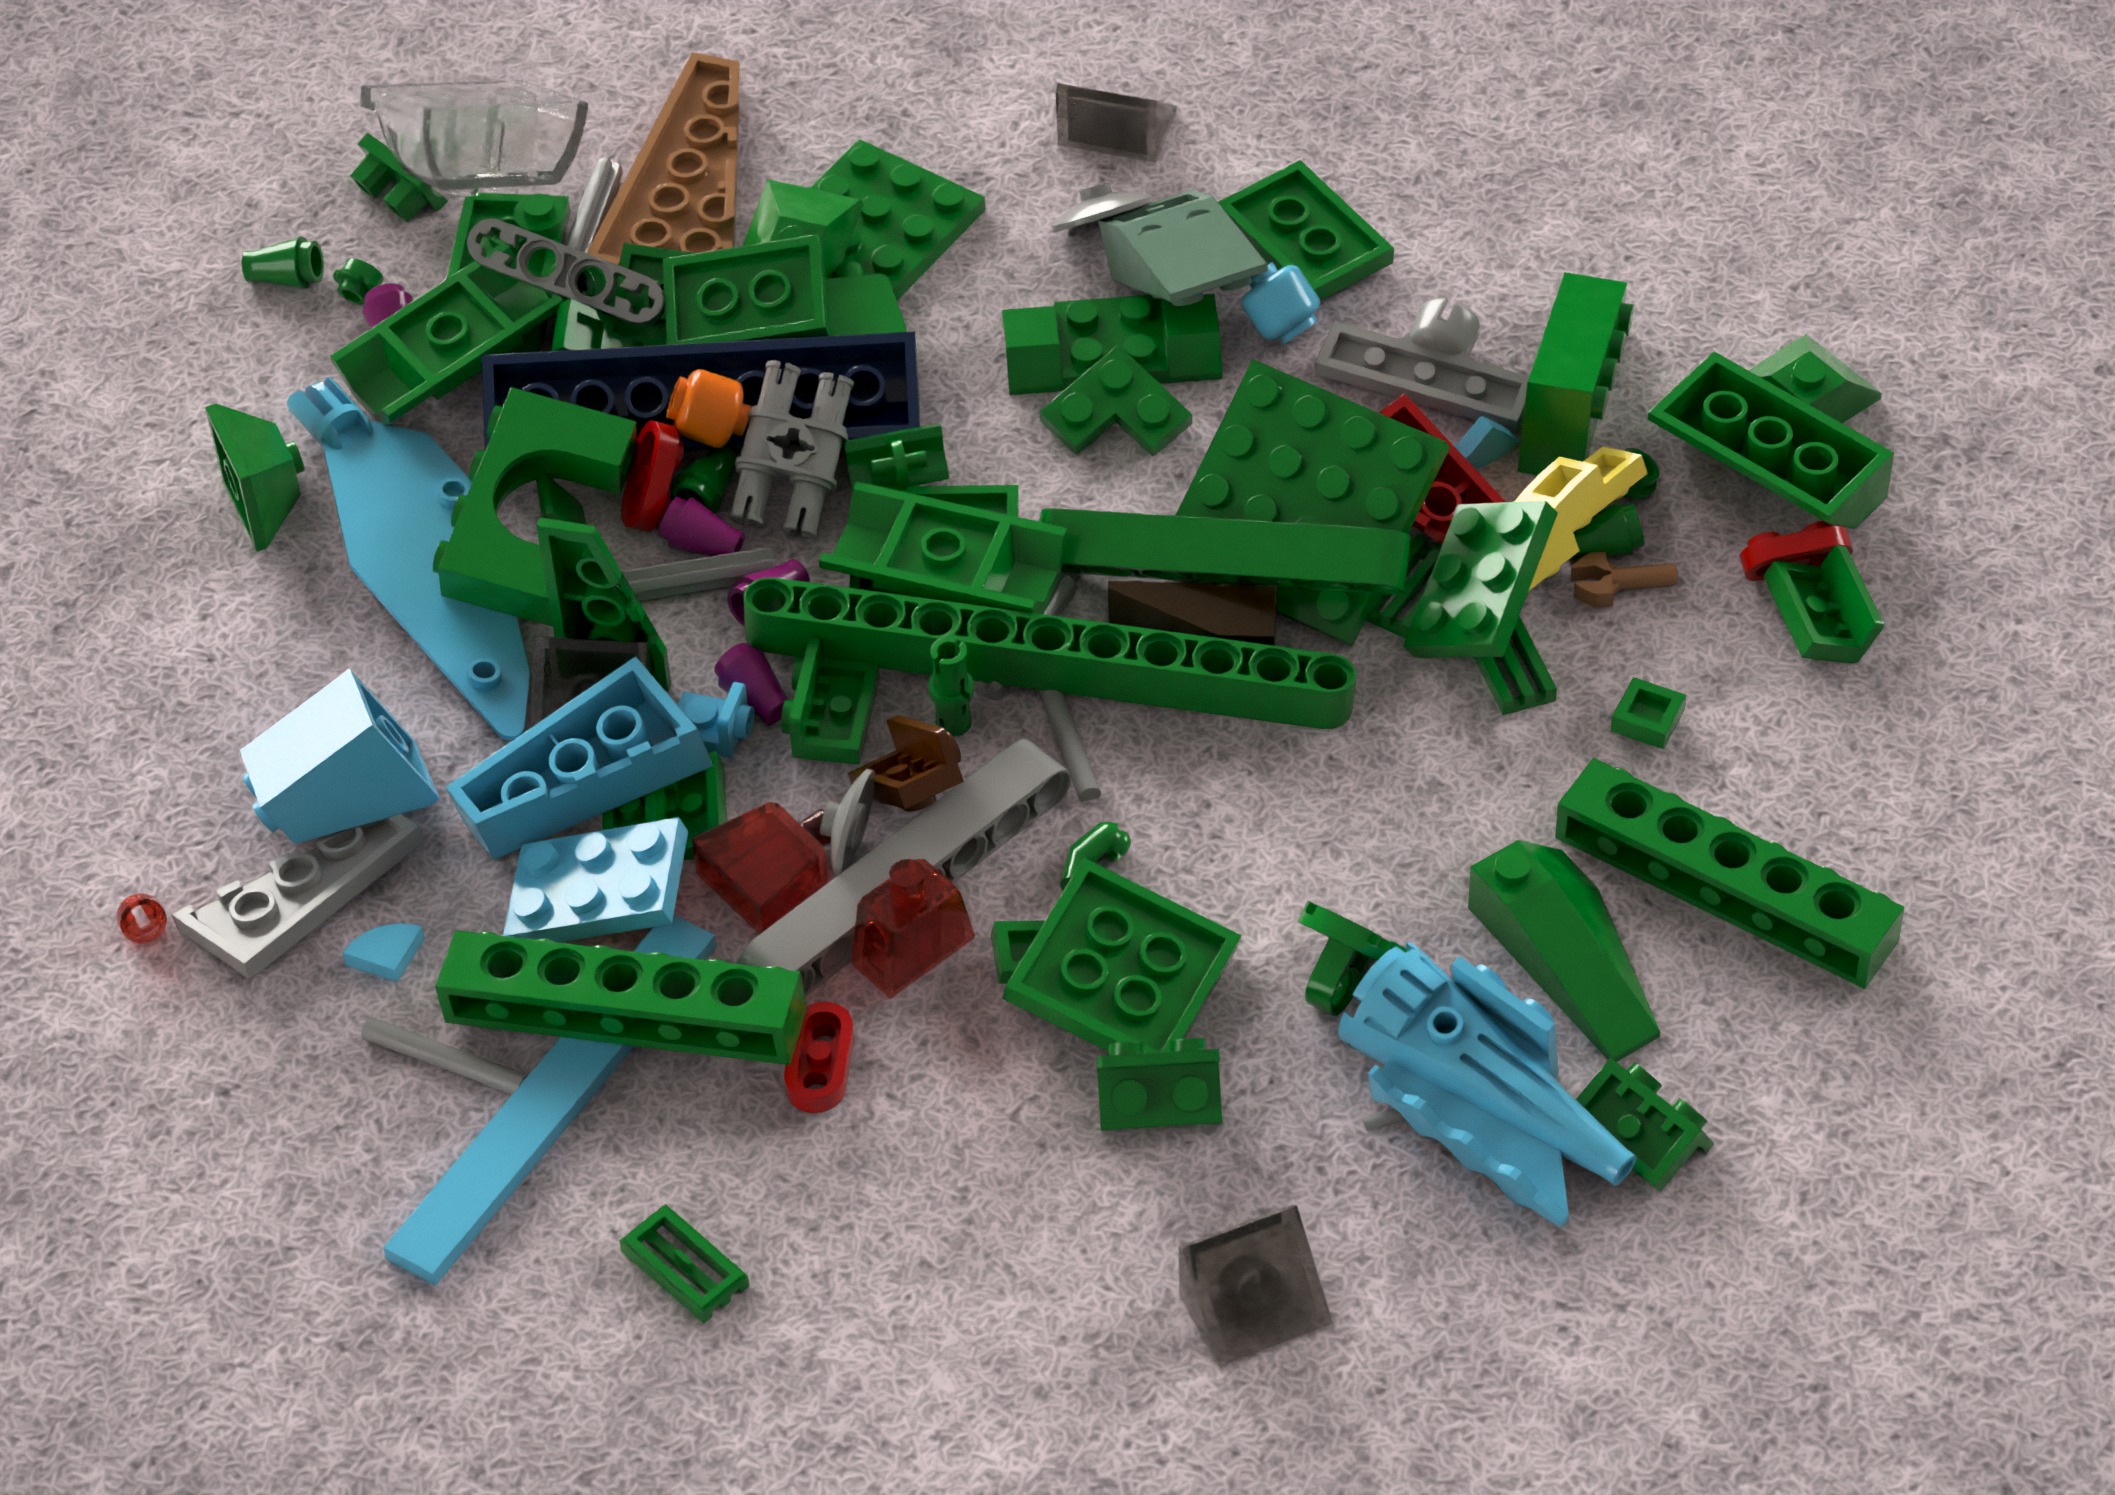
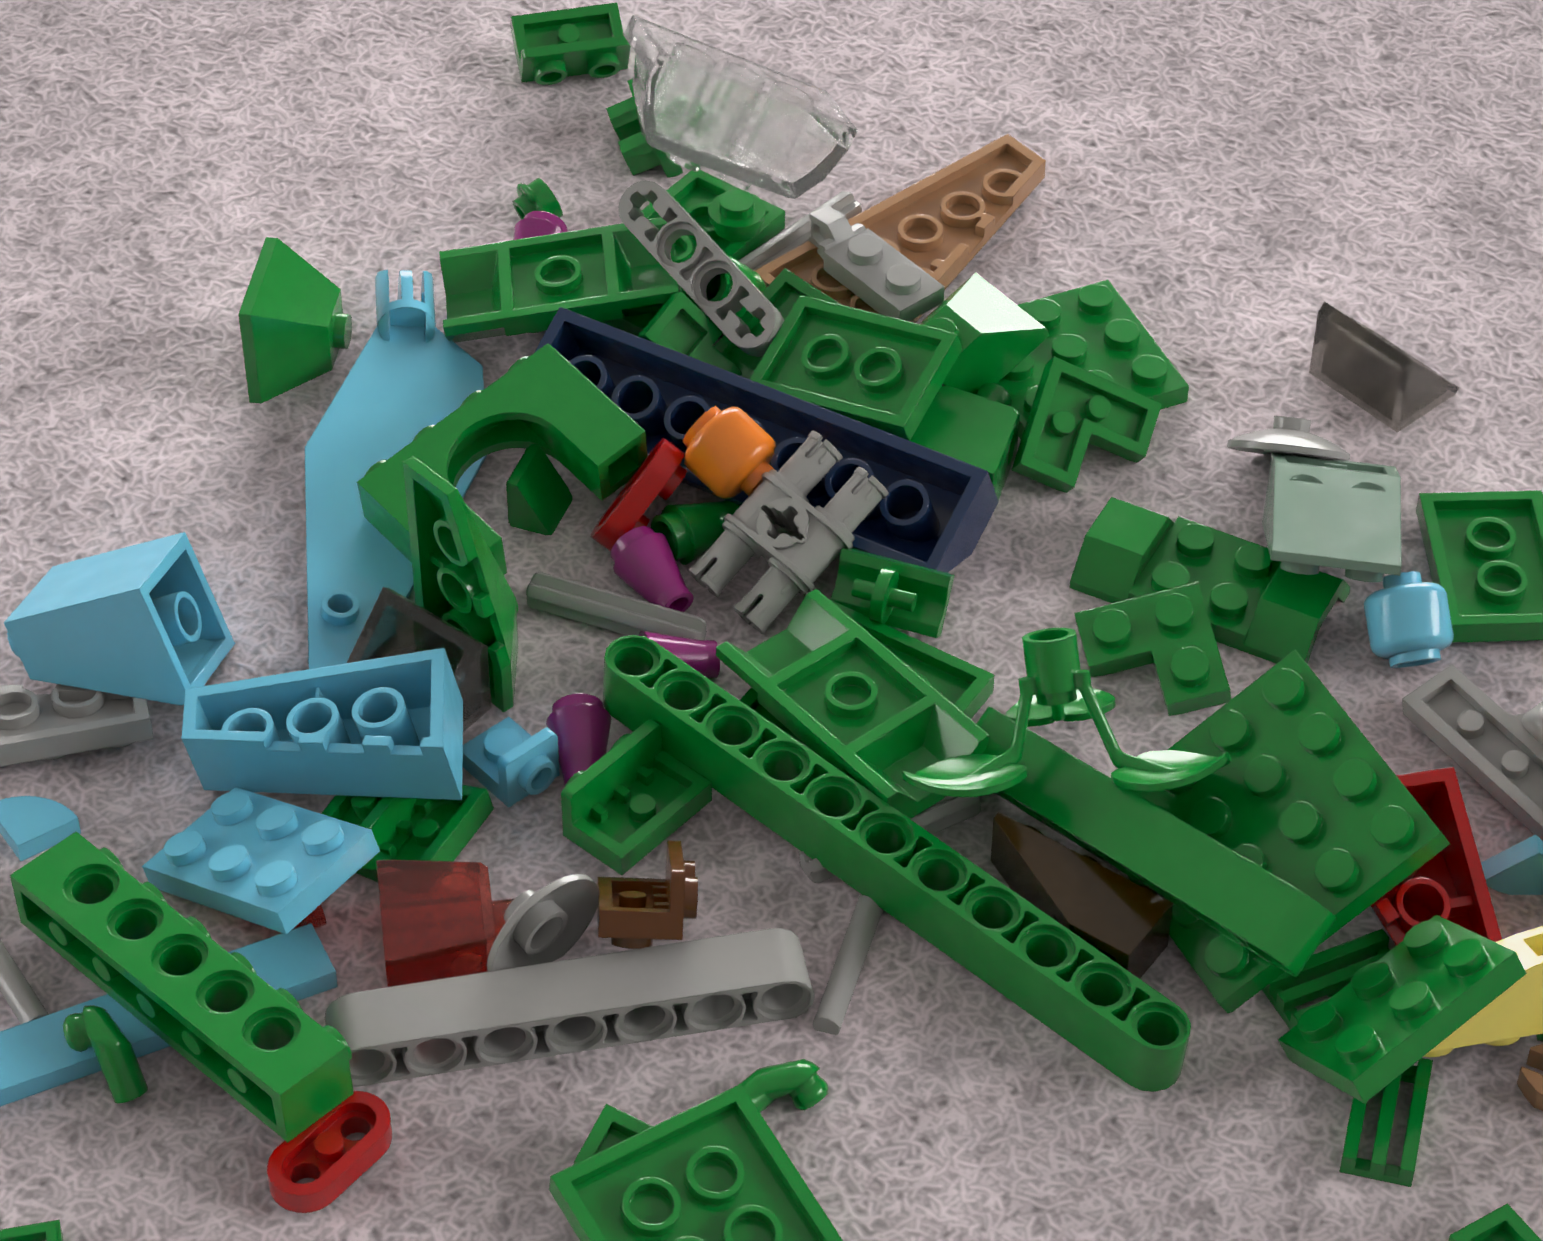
camera: 30 degrees right, 5 degrees down
(270, 131) = (570, 43): none -> green bracket
(286, 263) = (490, 162): green cone -> none
(604, 1067) = (113, 1050): none -> green arm
(680, 211) = (872, 267): none -> light grey hinge
(908, 926) = (519, 1060): clear red torso -> none
(925, 258) = (1076, 410): none -> green plate
(951, 685) = (752, 838): green pin -> none
(1104, 466) = (1060, 692): none -> green plant

